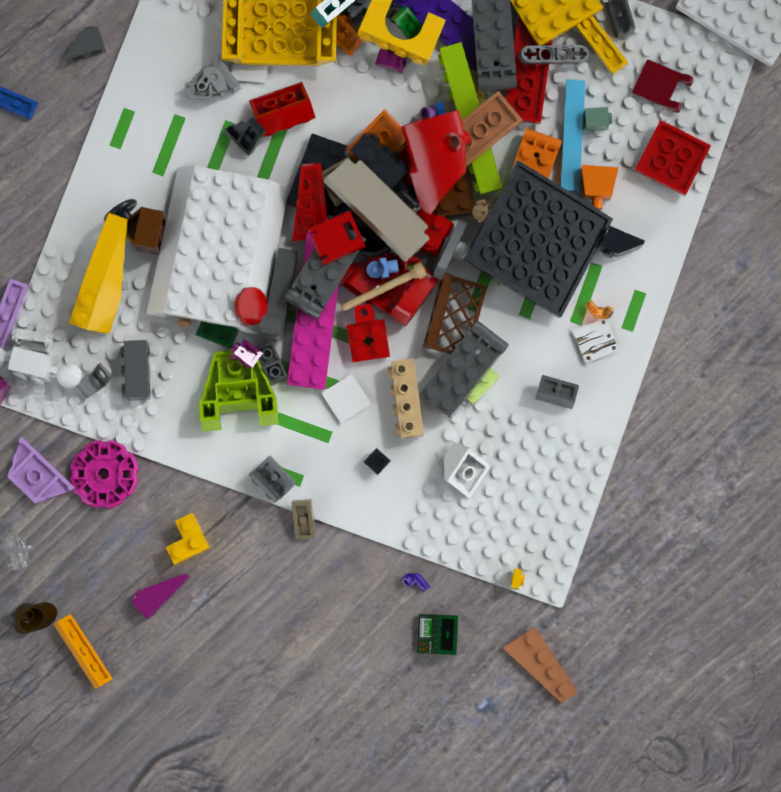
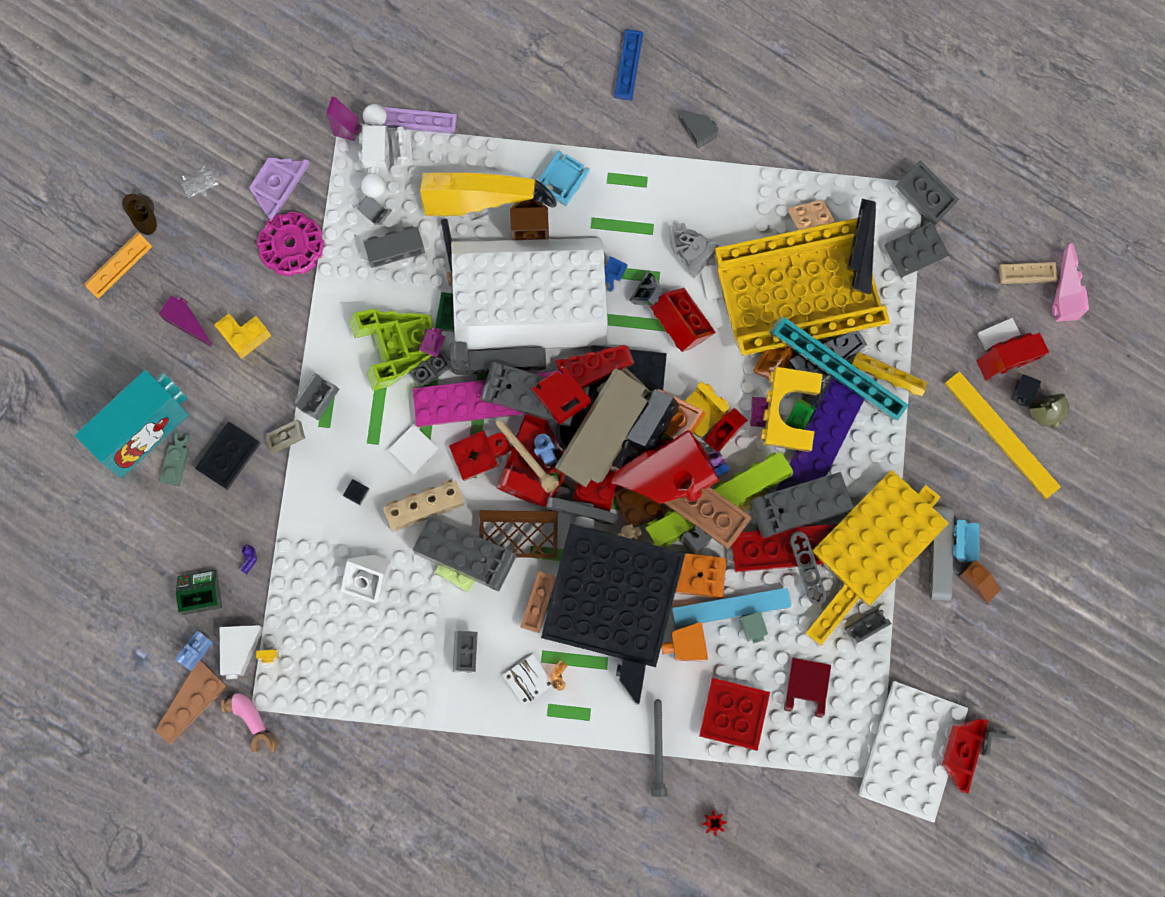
camera: 75 degrees right, 5 degrees down
(104, 187) = (564, 176): none -> medium azure container
(146, 317) = (447, 238): none -> black bar
(216, 161) = (614, 271): none -> blue plate
(251, 306) = (477, 332): red tile -> none
(258, 658) = (134, 422): none -> teal brick
(301, 634) = (175, 462): none -> sand green plate
(308, 580) = (227, 455): none -> black plate
(369, 107) = (711, 404): none -> yellow bracket
(402, 96) = (726, 430): none -> red slope
(494, 649) = (194, 650): none -> medium blue hips
(501, 608) = (237, 648): none -> white slope
(507, 150) = (696, 543): none -> dark grey hinge
(525, 312) = (538, 602): none -> nougat plate
(562, 611) = (245, 708): none -> piece
(722, 244) = (659, 788): none -> dark grey piece
(768, 207) = (719, 822): none -> red gear

